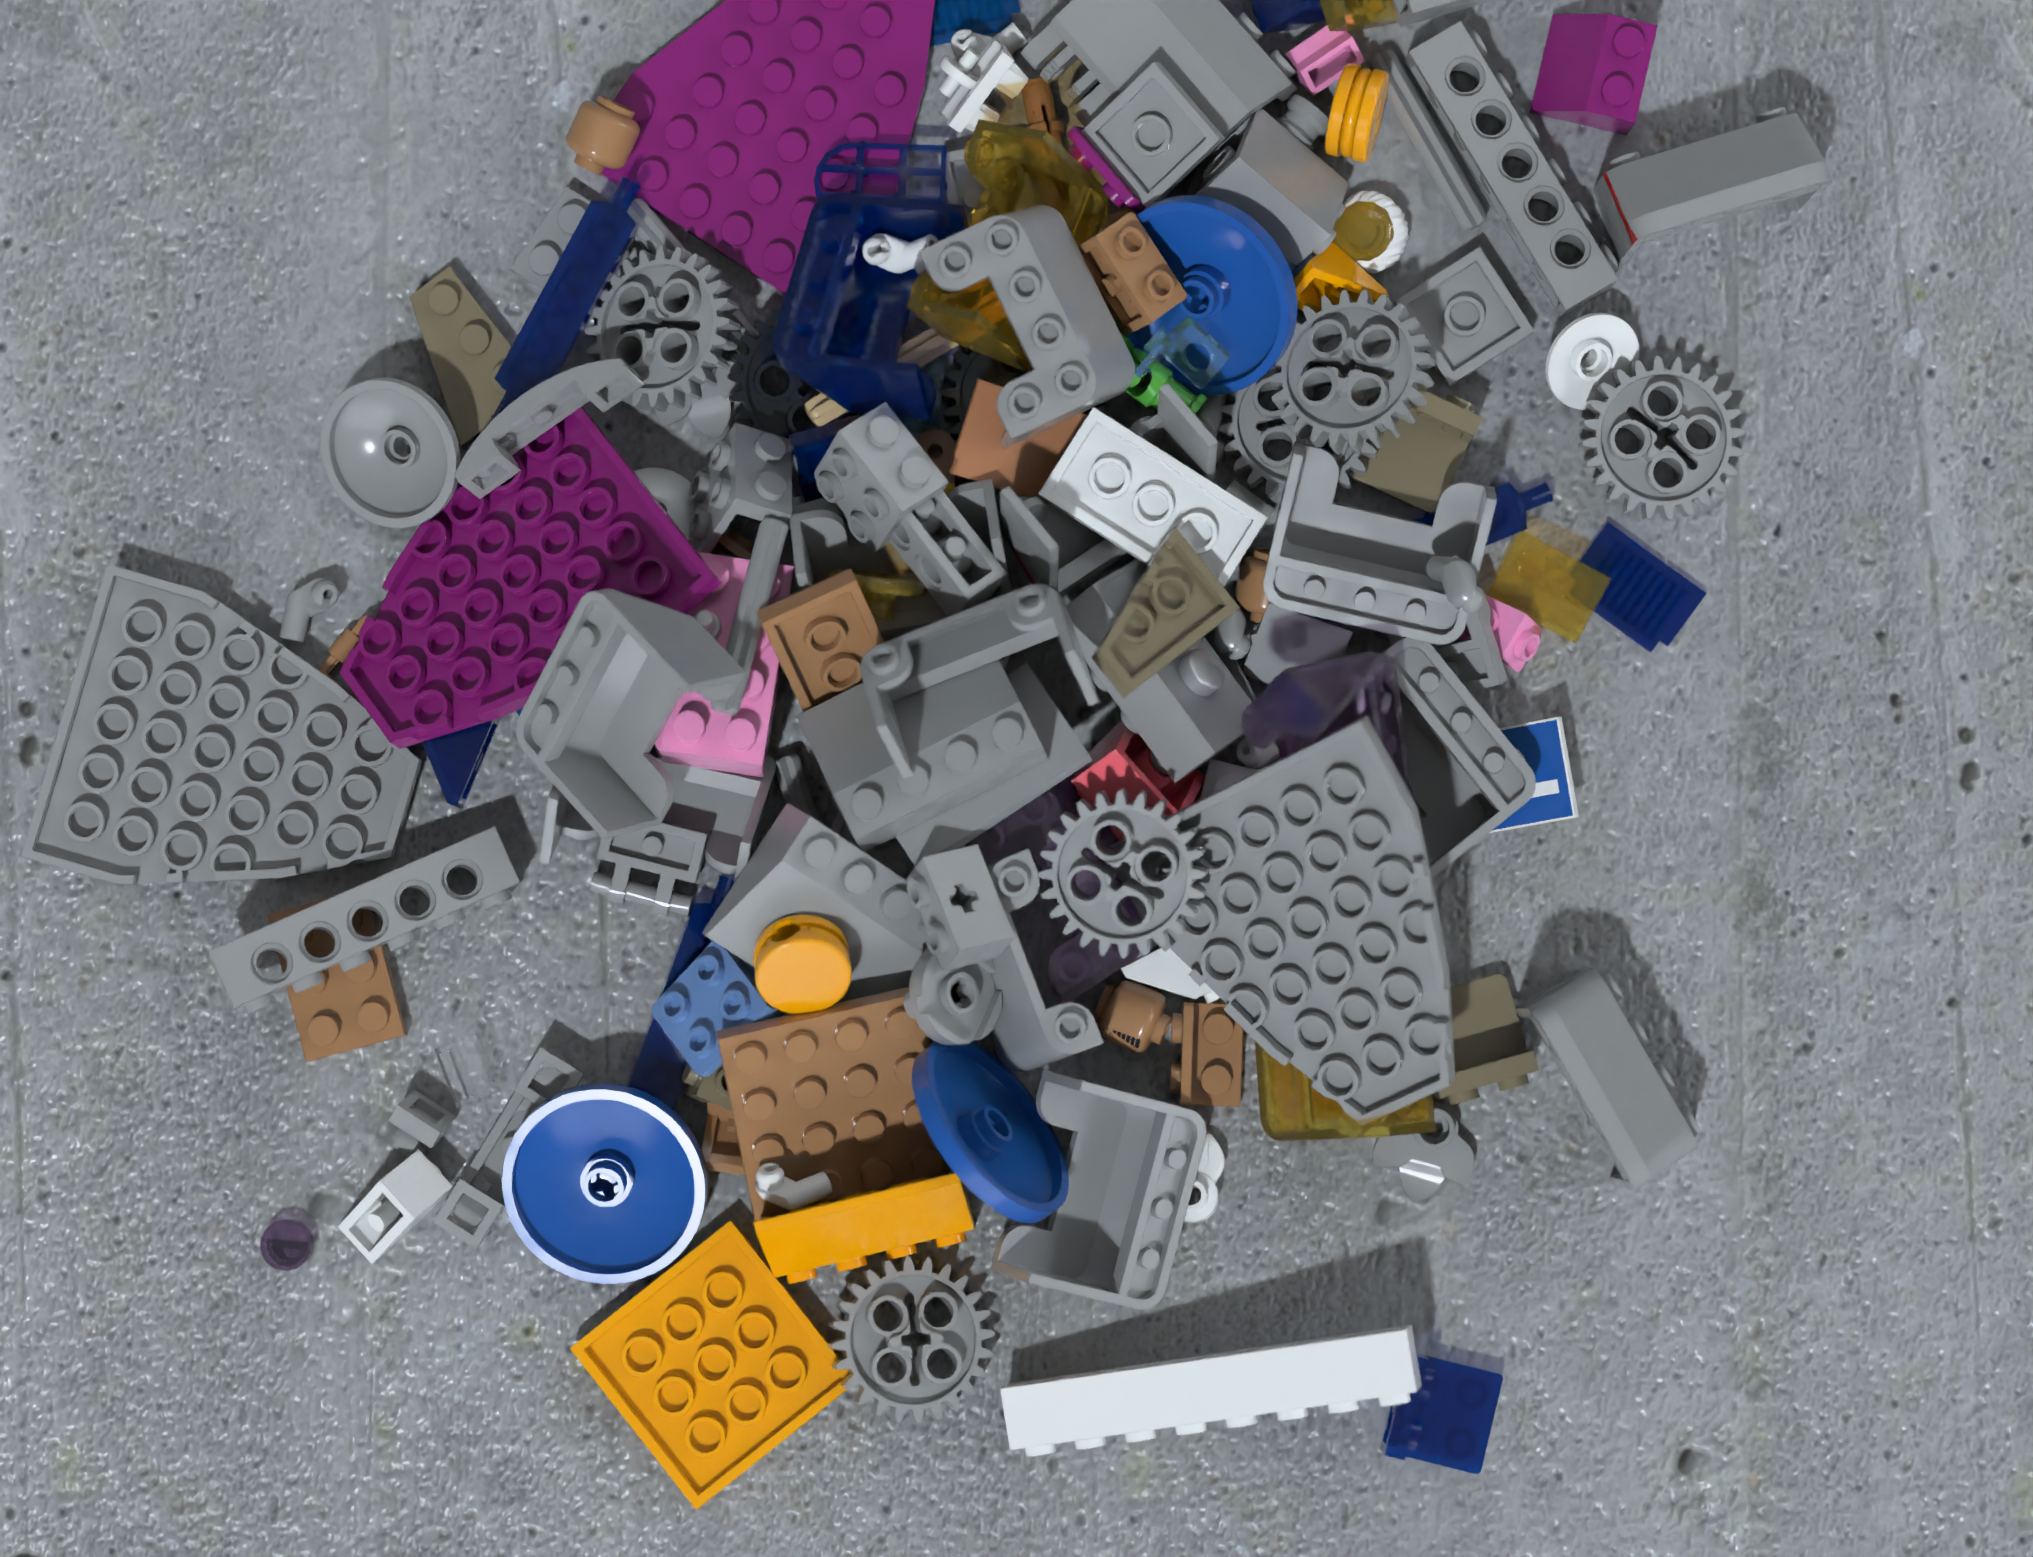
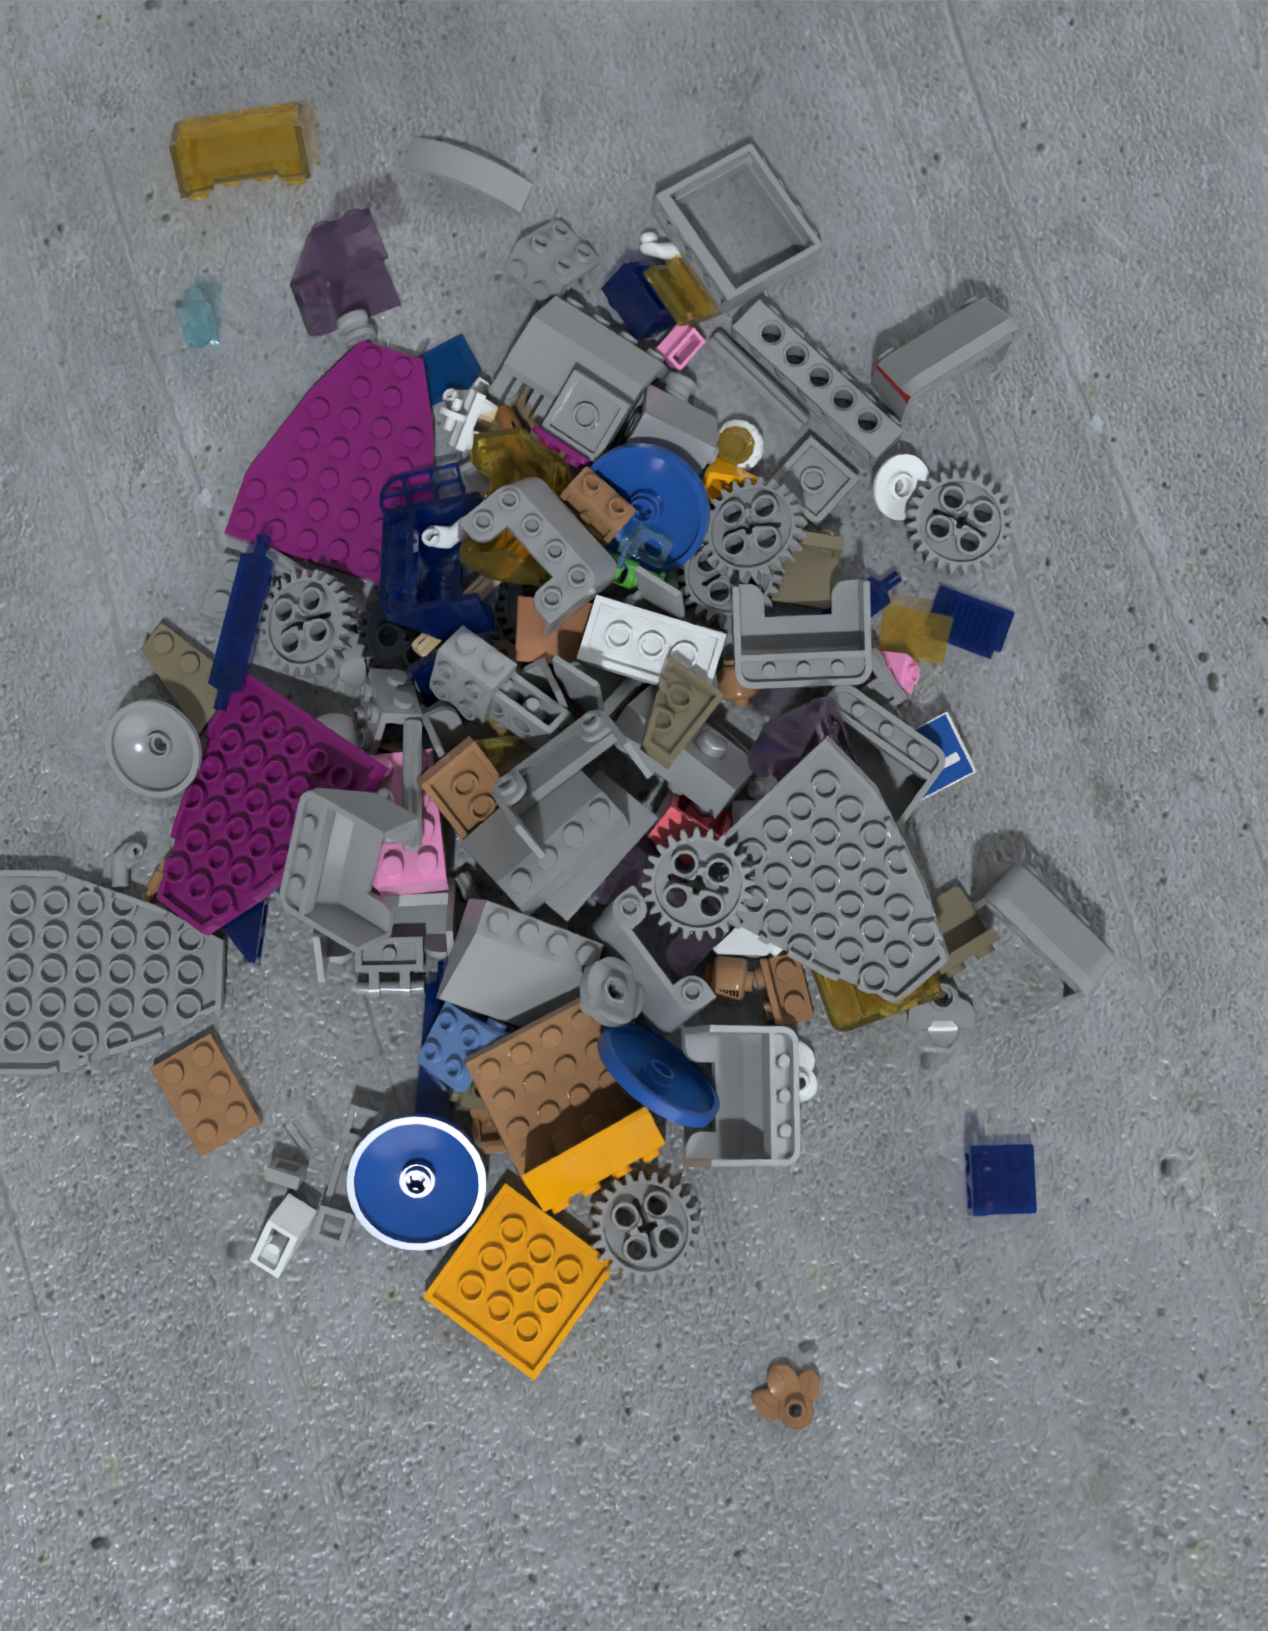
camera: 20 degrees left, 5 degrees down
(287, 1244) = (218, 1281): clear purple tile -> none
(479, 854) = (278, 990): light grey brick -> none
(490, 456) = (240, 697): light grey slope -> none
(602, 134) = (237, 512): medium nougat head -> none
(787, 1193) = (538, 1153): white arm -> none
(802, 964) = (506, 1000): light orange head -> none
(959, 907) = (599, 934): light grey brick -> none
(1210, 1389) = (848, 1204): white brick -> none
(1230, 637) = (722, 718): light grey arm -> none
(1292, 640) = (760, 707): light grey piece -> none
(1356, 112) = (710, 373): light orange head -> none
(1458, 582) = (859, 639): light grey arm -> none
(1594, 70) = (850, 309): magenta slope -> none

